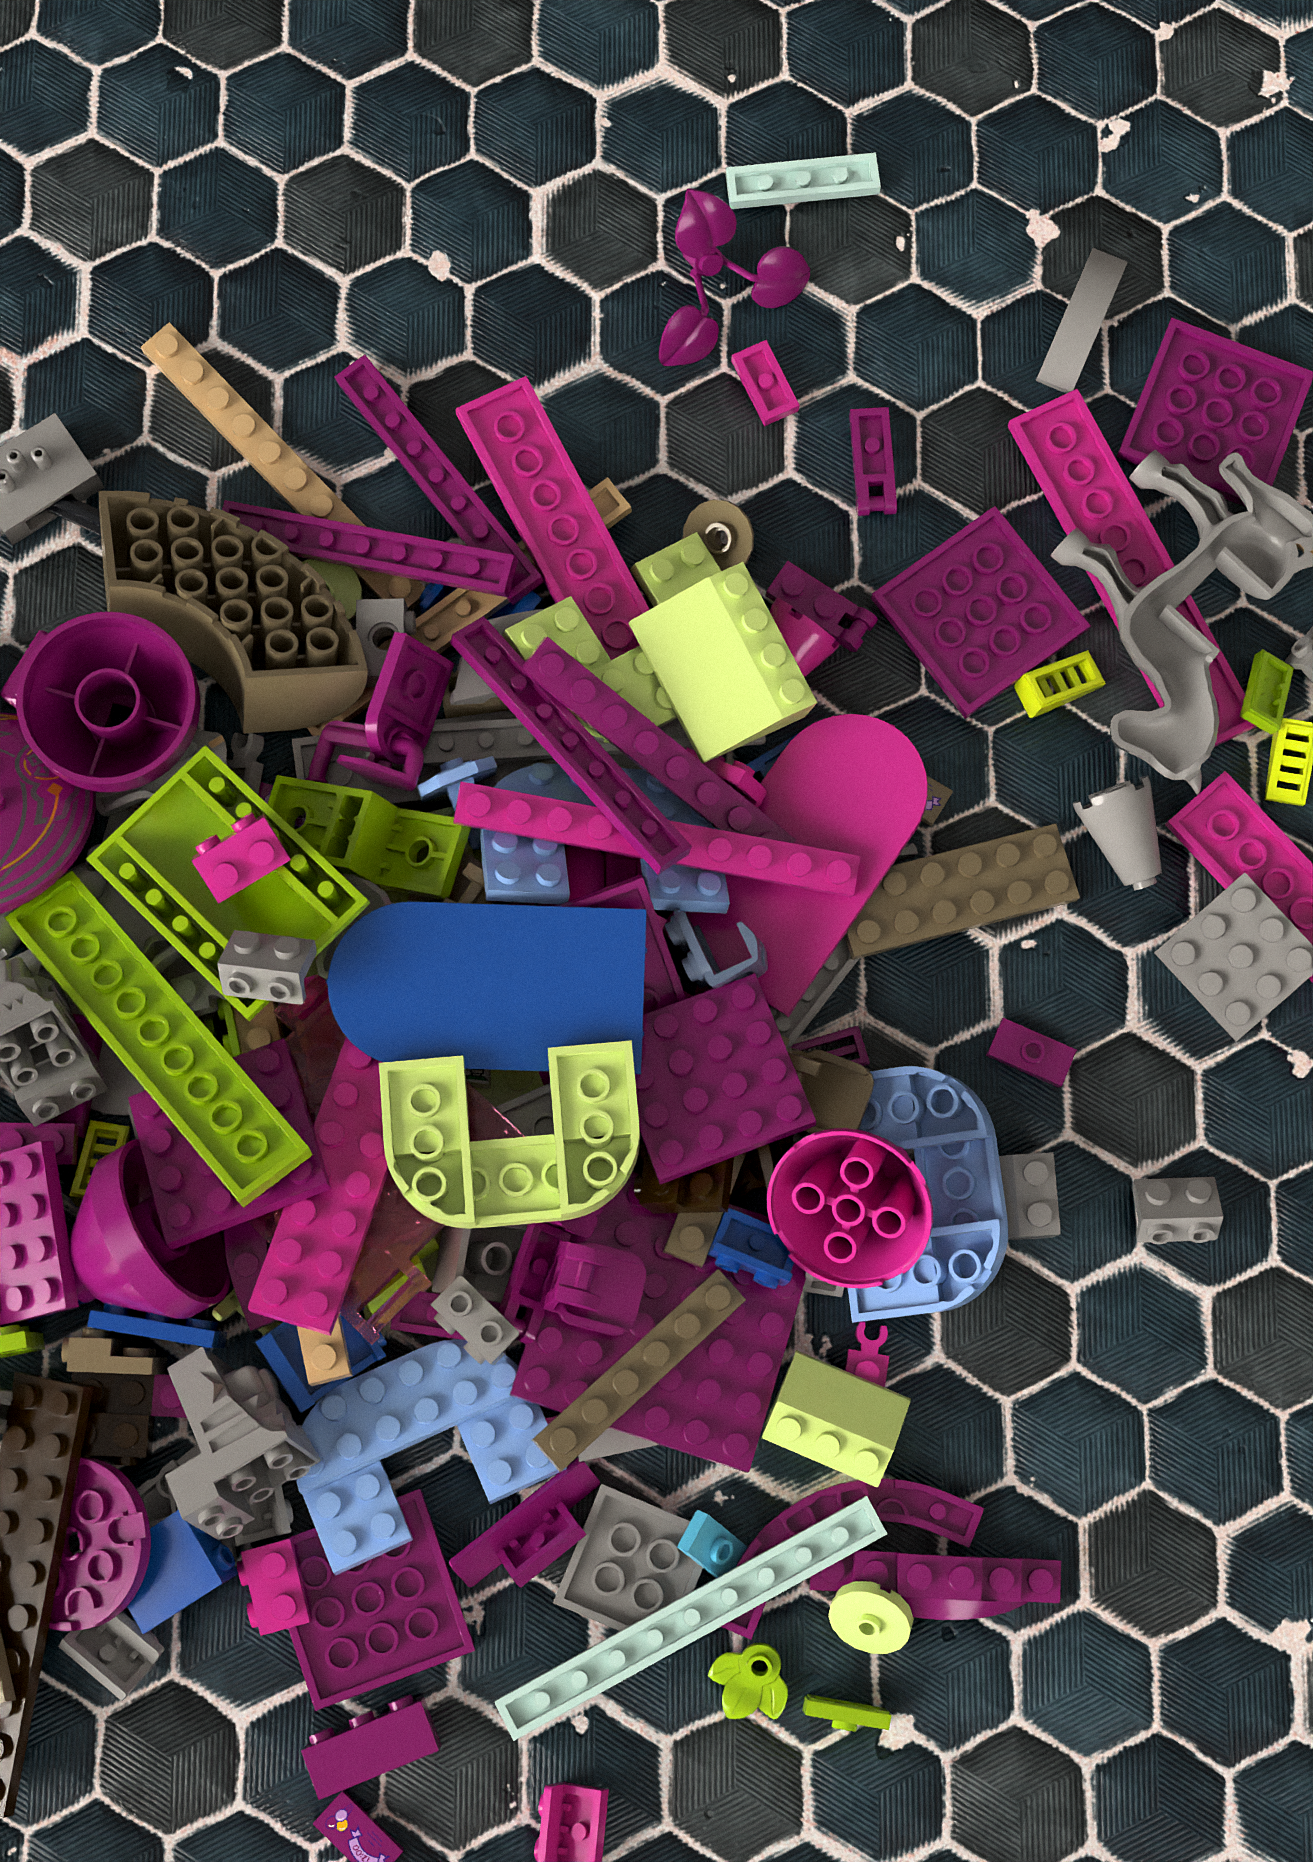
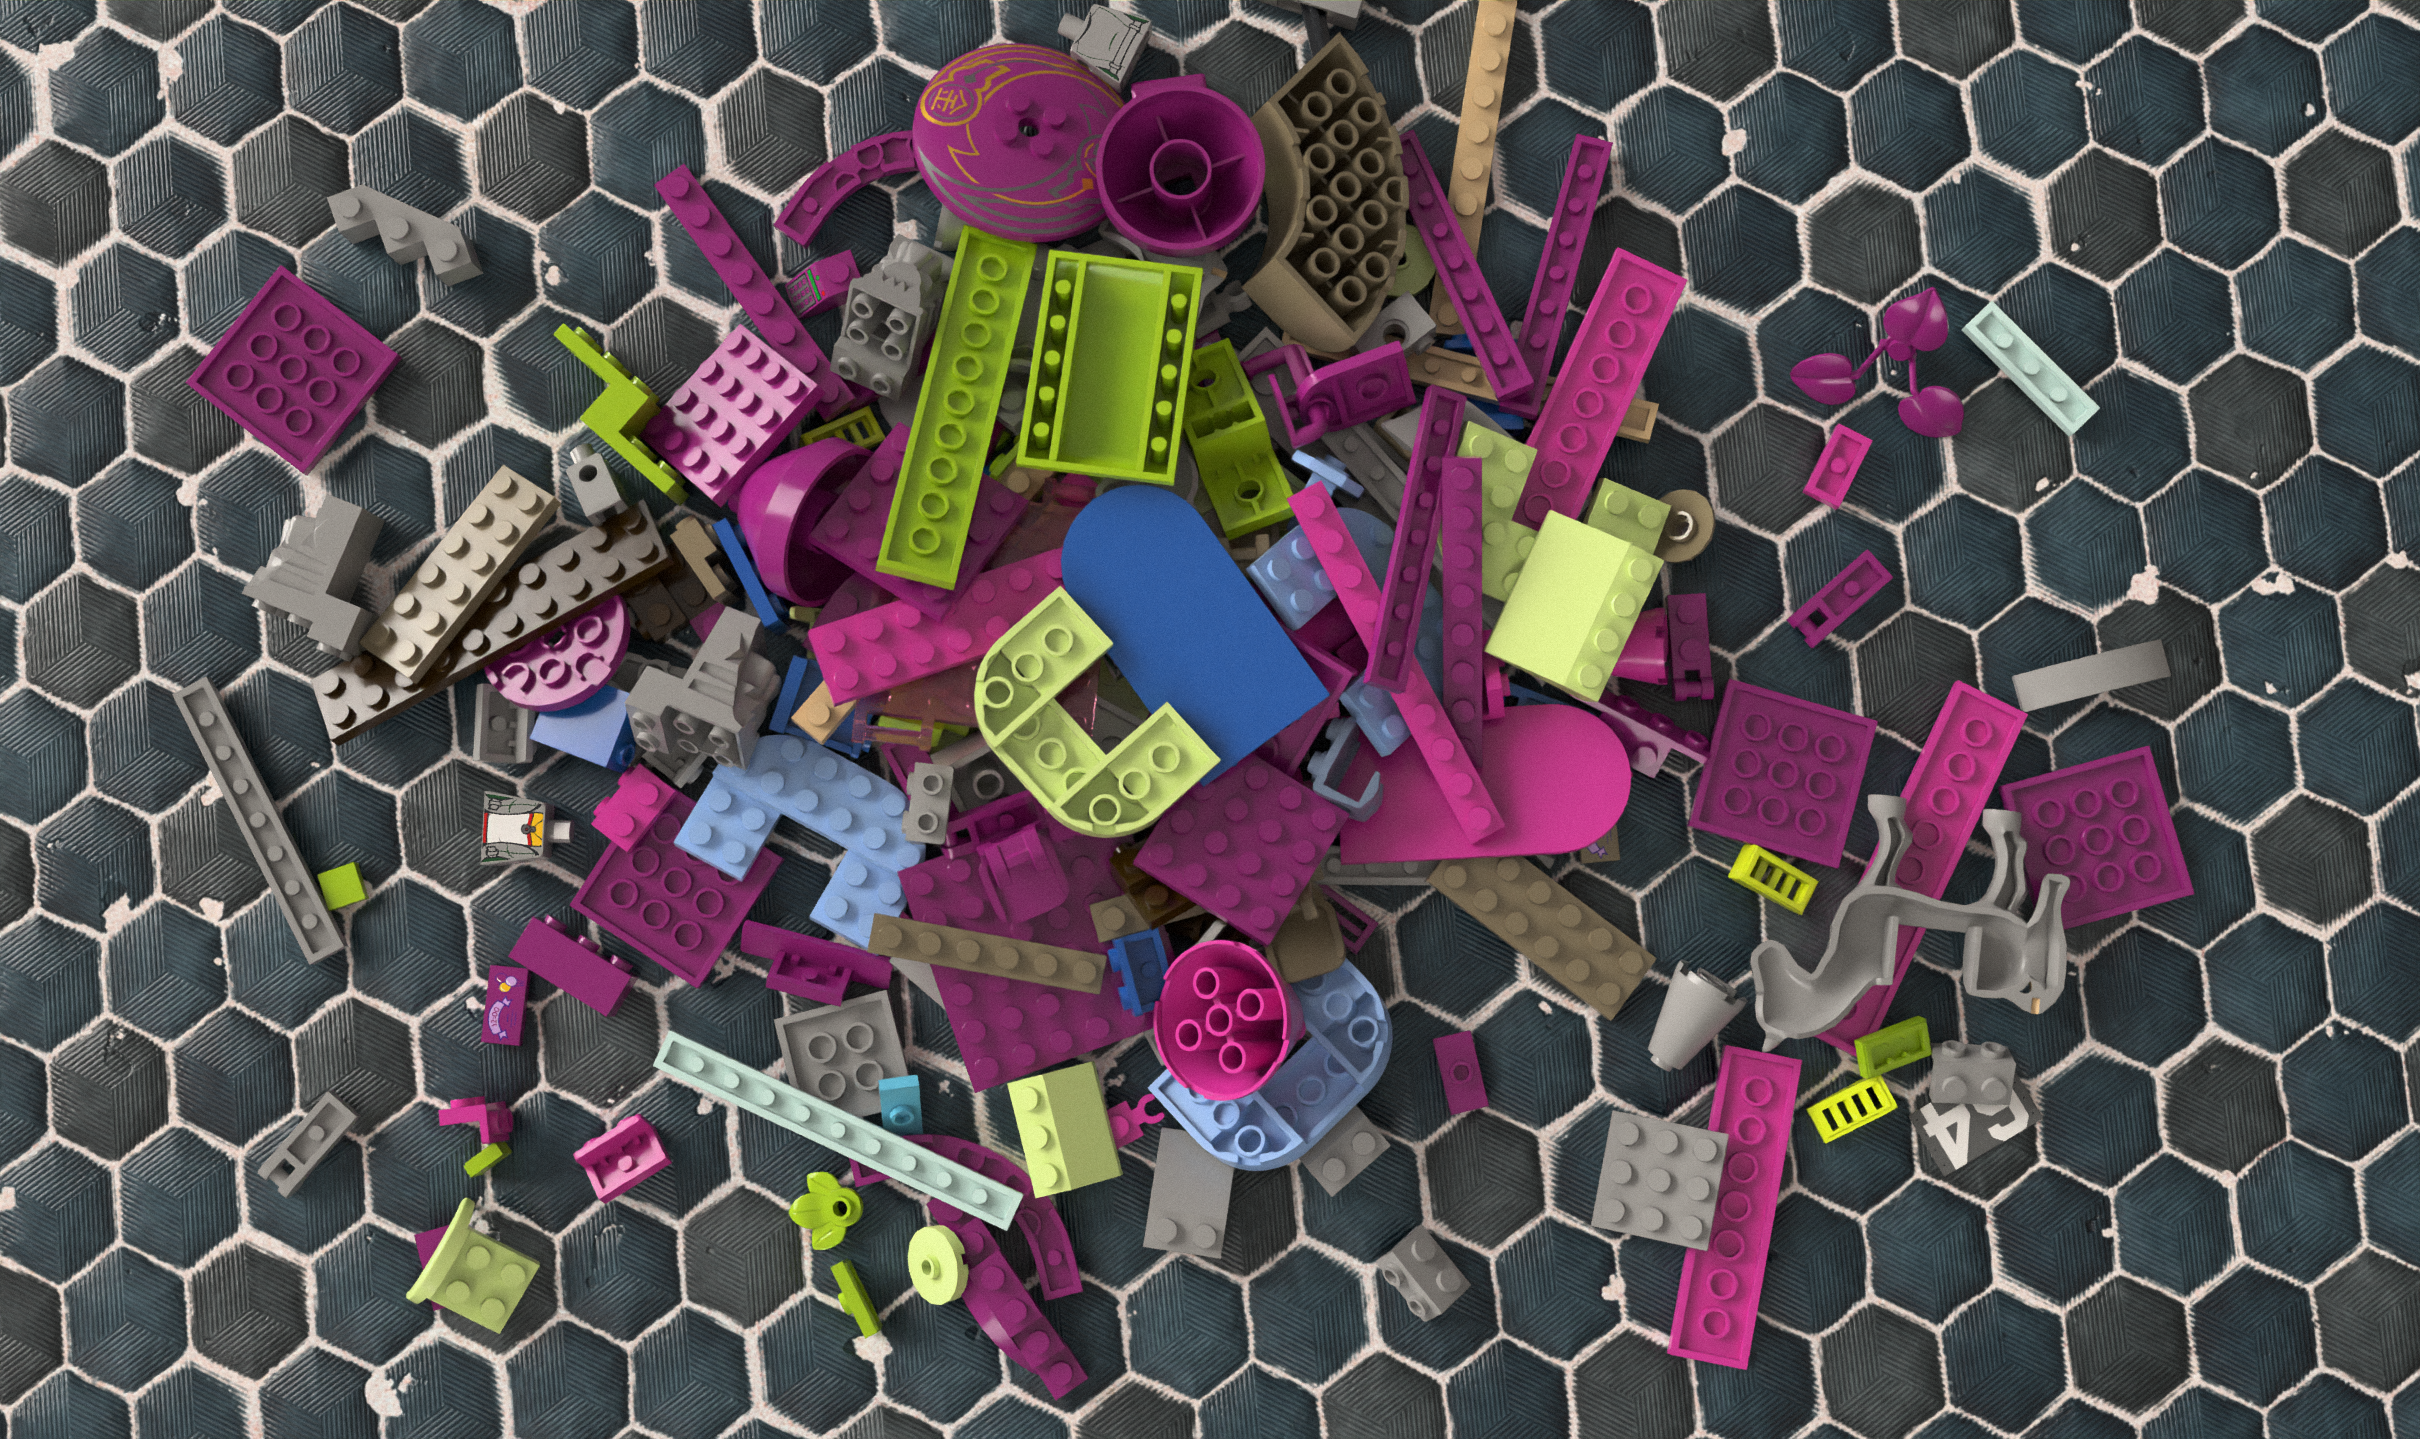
camera: 60 degrees right, 5 degrees up
(215, 1705) = (520, 830): none -> torso
(239, 857) = (1133, 361): dark pink bracket -> none
(266, 966) = (1065, 446): light grey bracket -> none
(869, 691) = (1647, 735): none -> magenta bracket
(970, 1358) = (1188, 1197): none -> light grey slope

